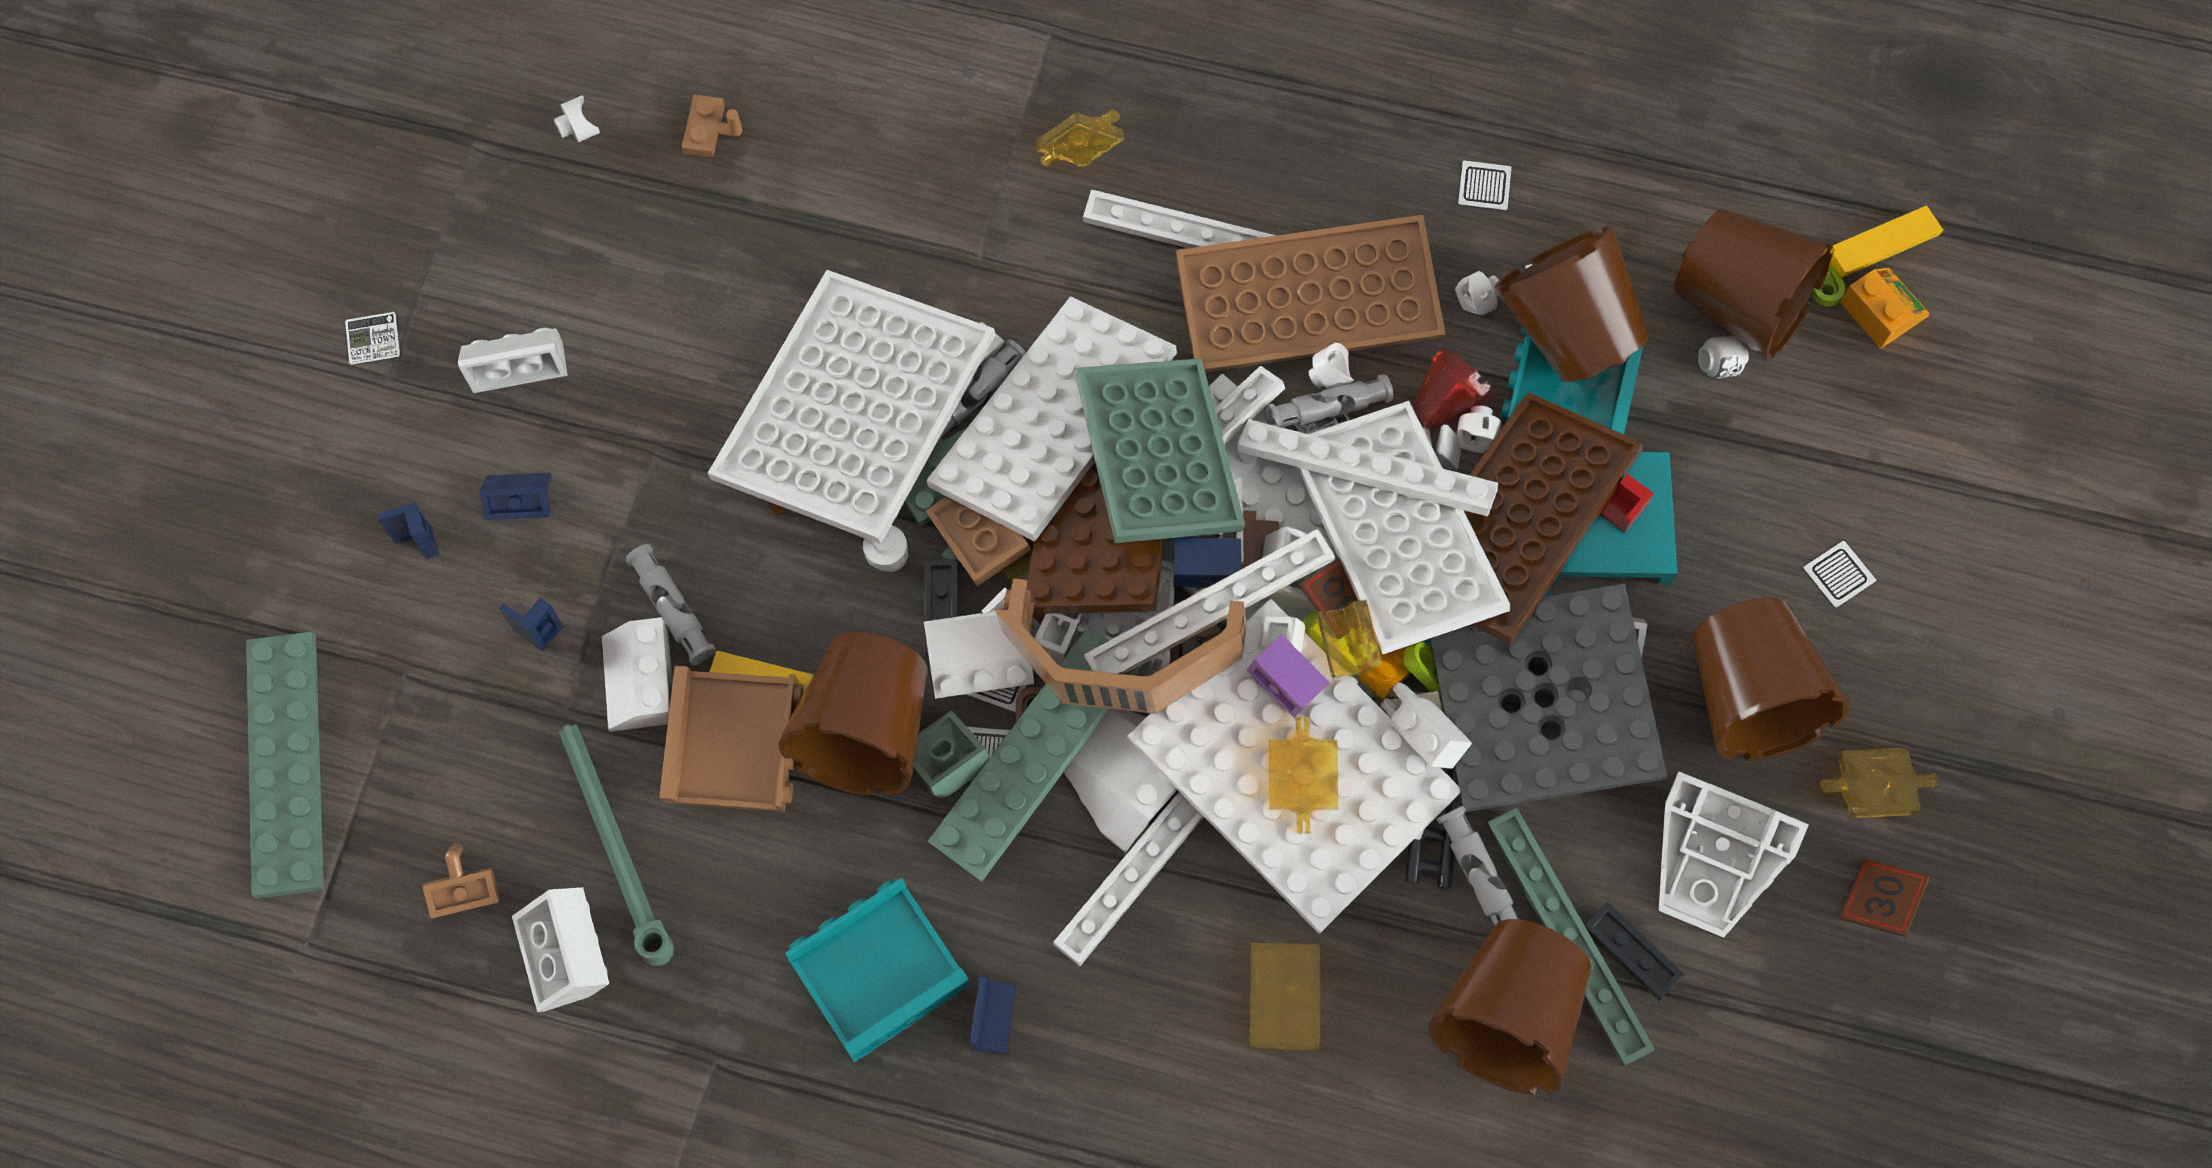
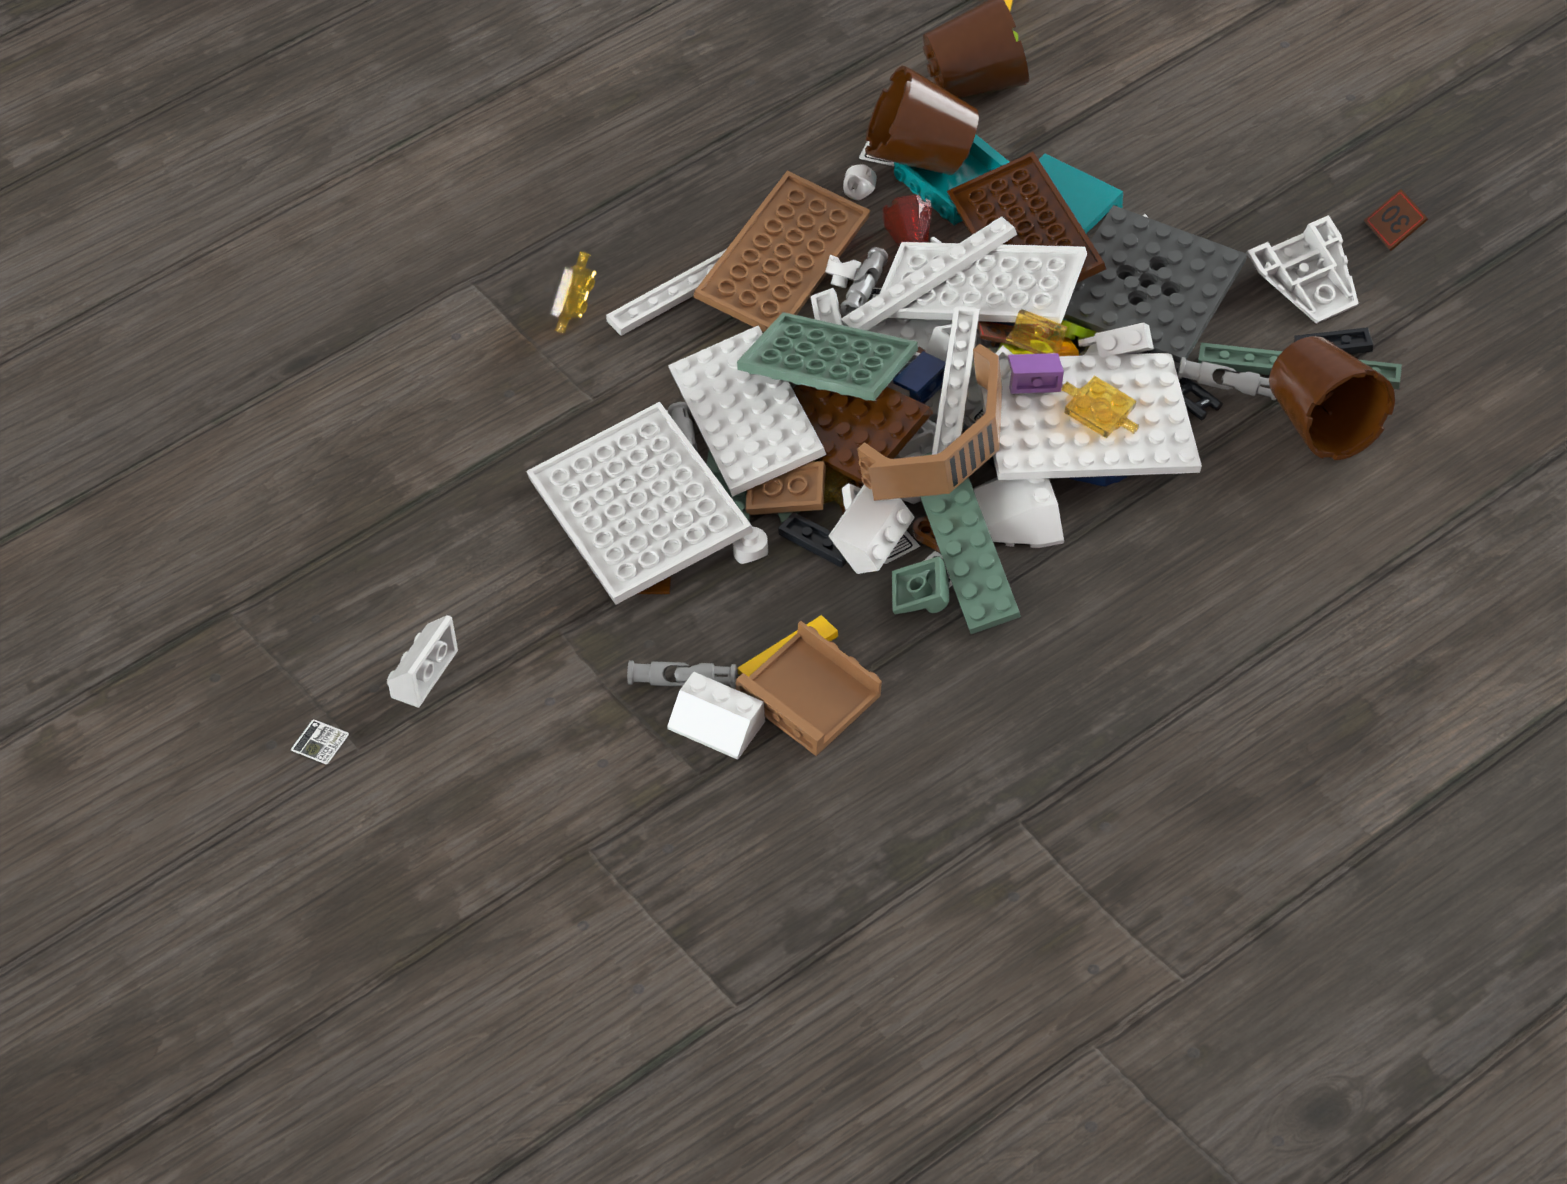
camera: 50 degrees left, 20 degrees down
(284, 765) = (593, 949): sand green plate -> none
(410, 523) = (497, 773): dark blue panel -> none
(460, 890) = (779, 889): medium nougat plate -> none
(516, 496) = (523, 716): dark blue panel -> none
(537, 626) = (627, 748): dark blue panel -> none
(560, 948) = (870, 857): white slope -> none
(574, 122) = (280, 540): white piece -> none
(646, 926) = (908, 802): sand green piece -> none
(705, 125) = (354, 483): medium nougat plate -> none
(859, 716) = (865, 599): reddish brown cone -> none
(876, 968) = (1031, 702): teal panel -> none
(992, 1016) = (1113, 660): dark blue panel -> none
(1128, 879) = (1083, 543): white plate -> none
(1284, 996) = (1223, 515): clear yellow plate -> none
(1480, 424) = (947, 227): white piece -> none
(1485, 185) = (788, 146): white sticker -> none
(1627, 503) = (1064, 180): red panel -> none
(1723, 357) = (1005, 103): white head -> none
(1764, 681) = (1226, 183): reddish brown cone -> none
(1839, 574) = (1183, 136): white sticker -> none
(1879, 782) = (1324, 187): clear yellow plate -> none
(1883, 306) = (1040, 25): light orange slope -> none

